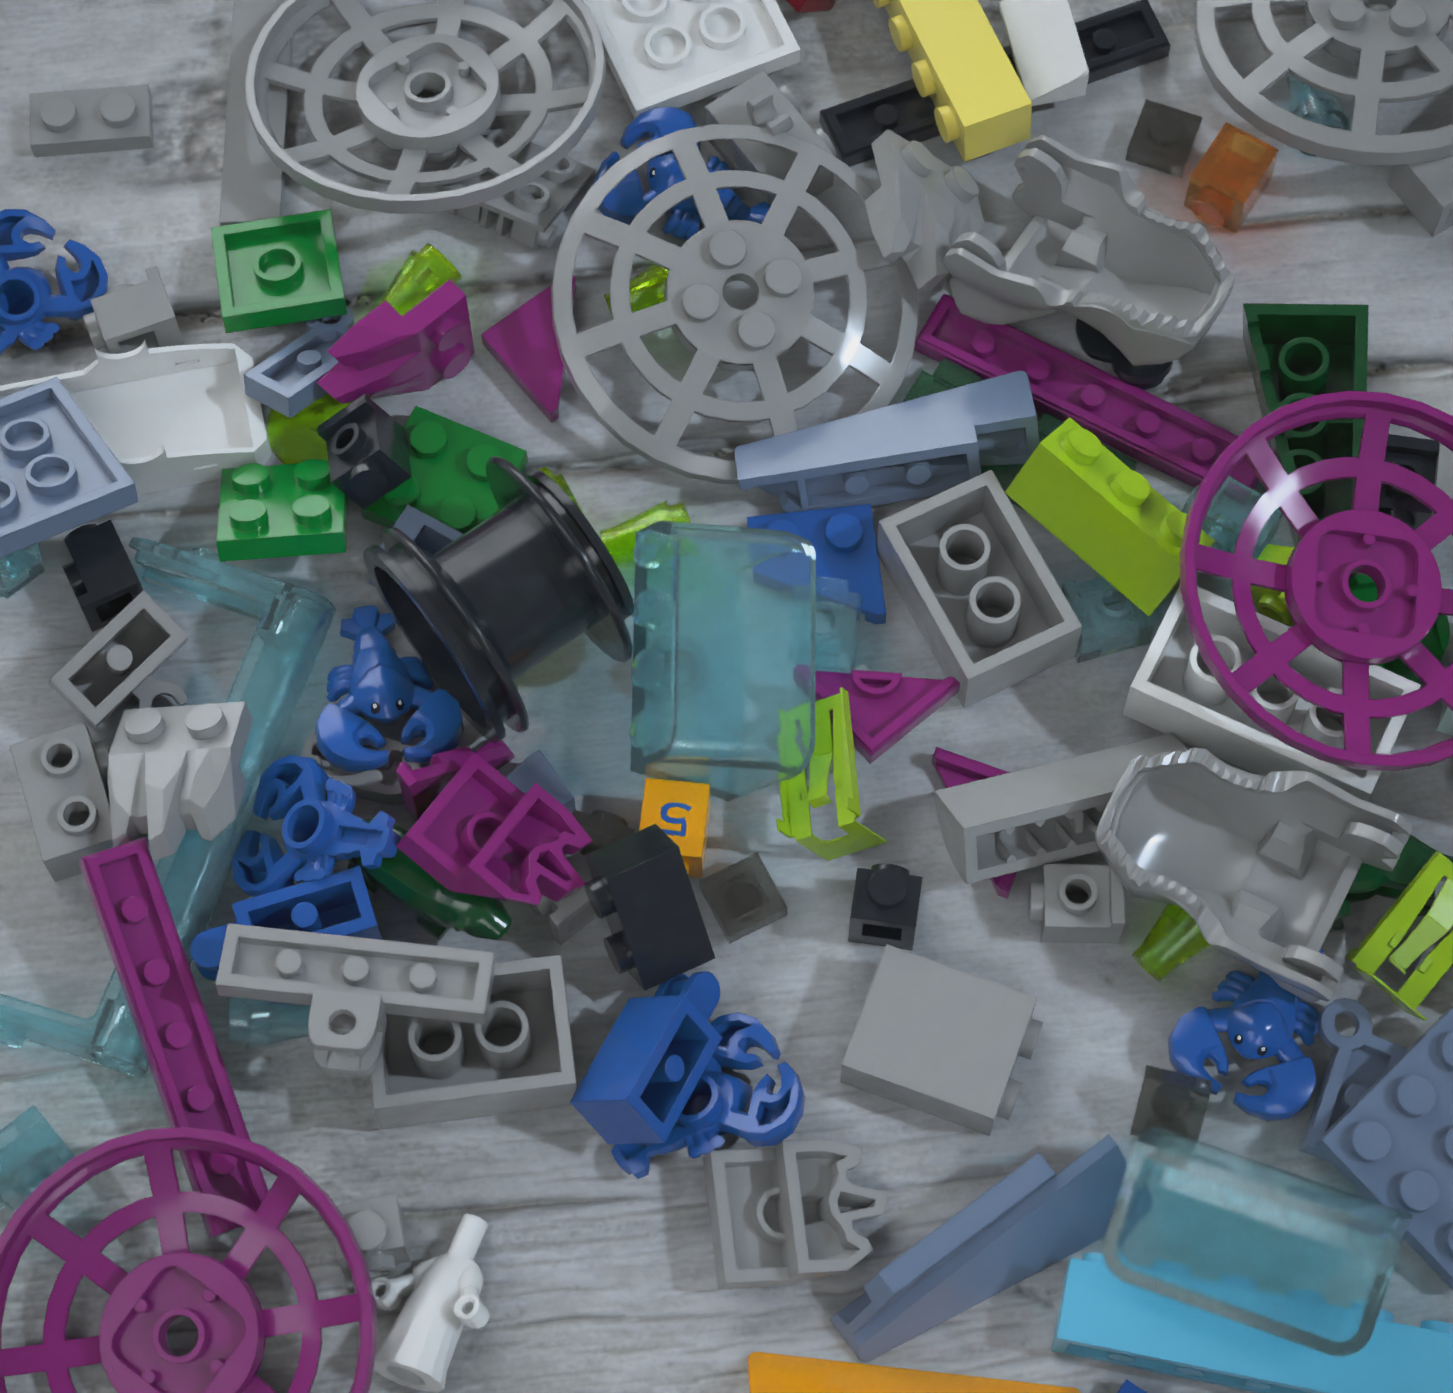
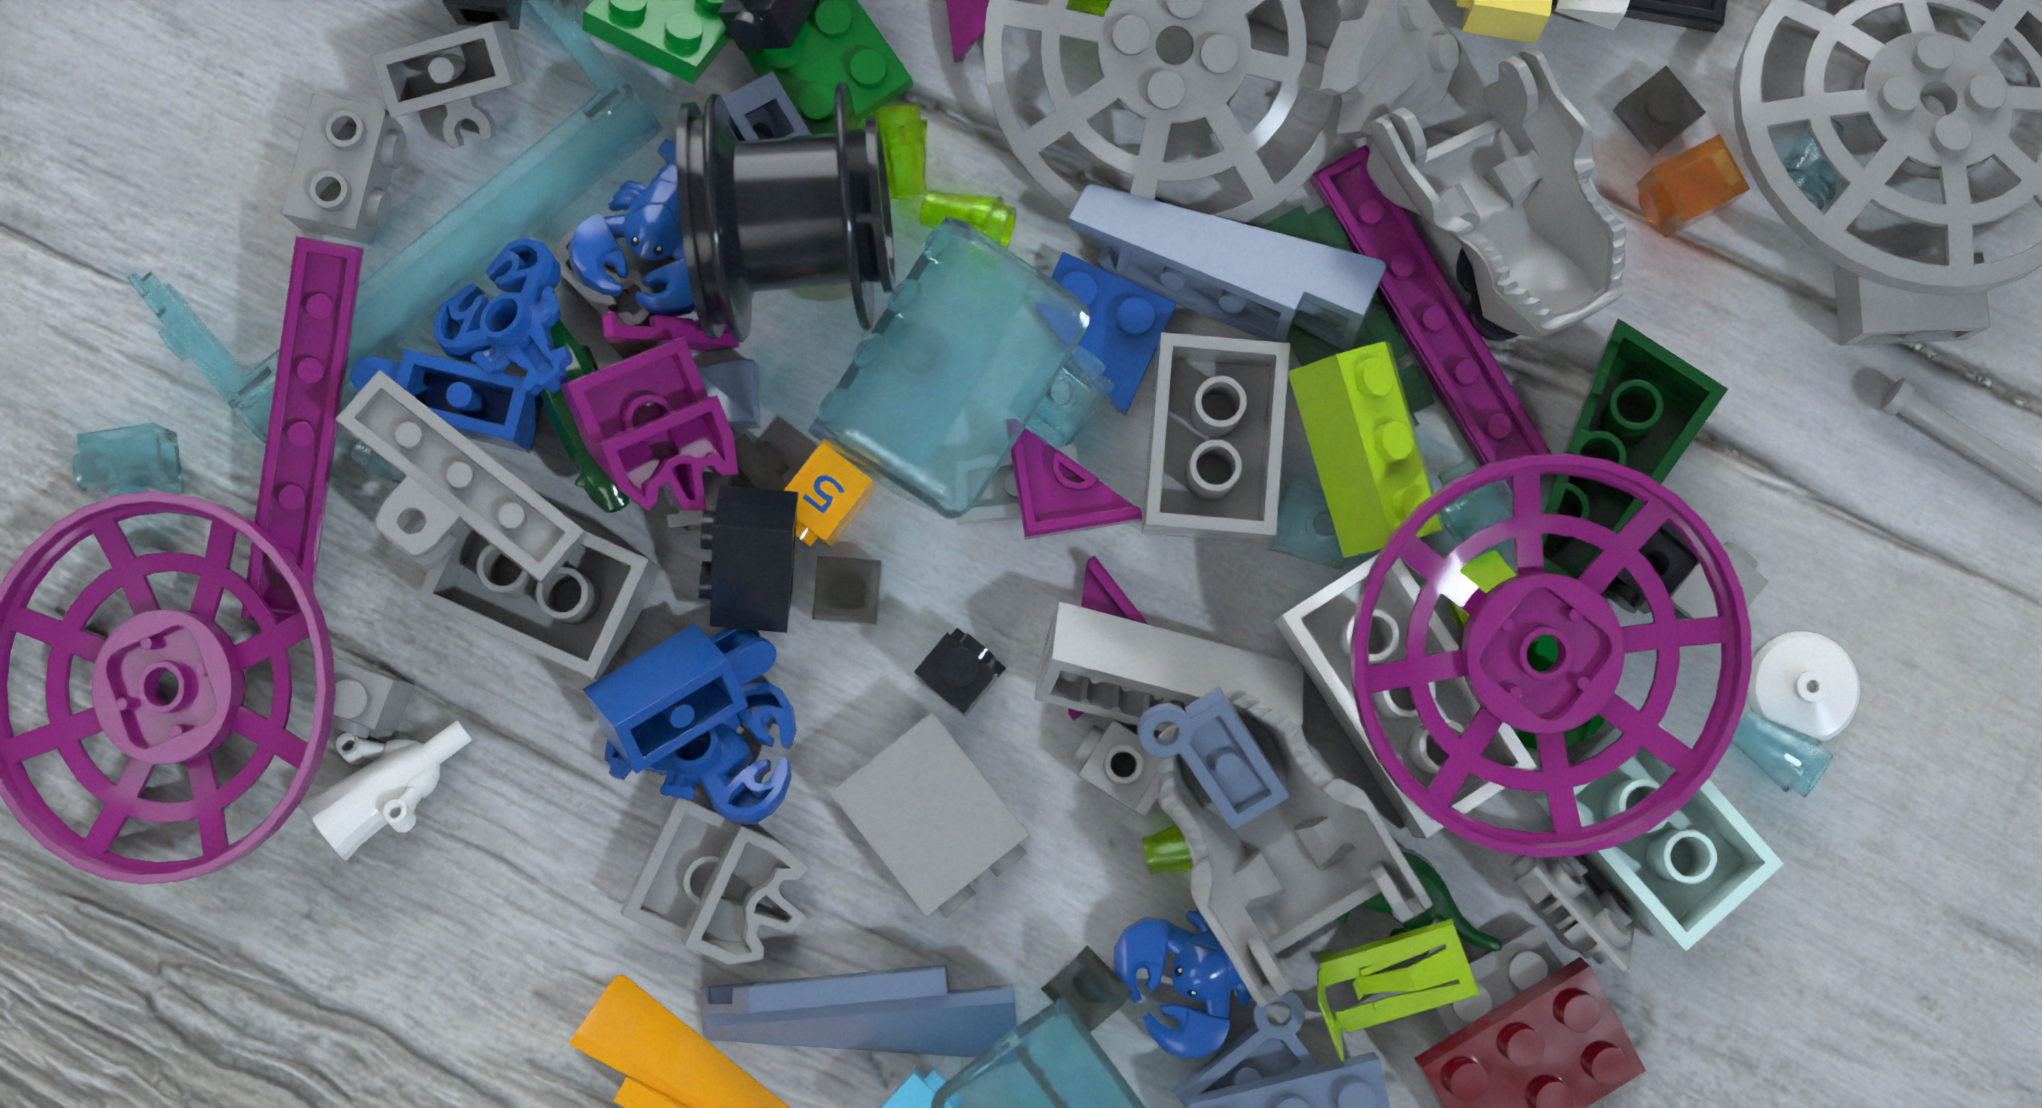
camera: 30 degrees right, 15 degrees up
(176, 773) = (427, 204): light grey plate -> none
(797, 797) = (941, 535): lime piece -> none
(1157, 817) = (1218, 754): none -> sand blue hinge

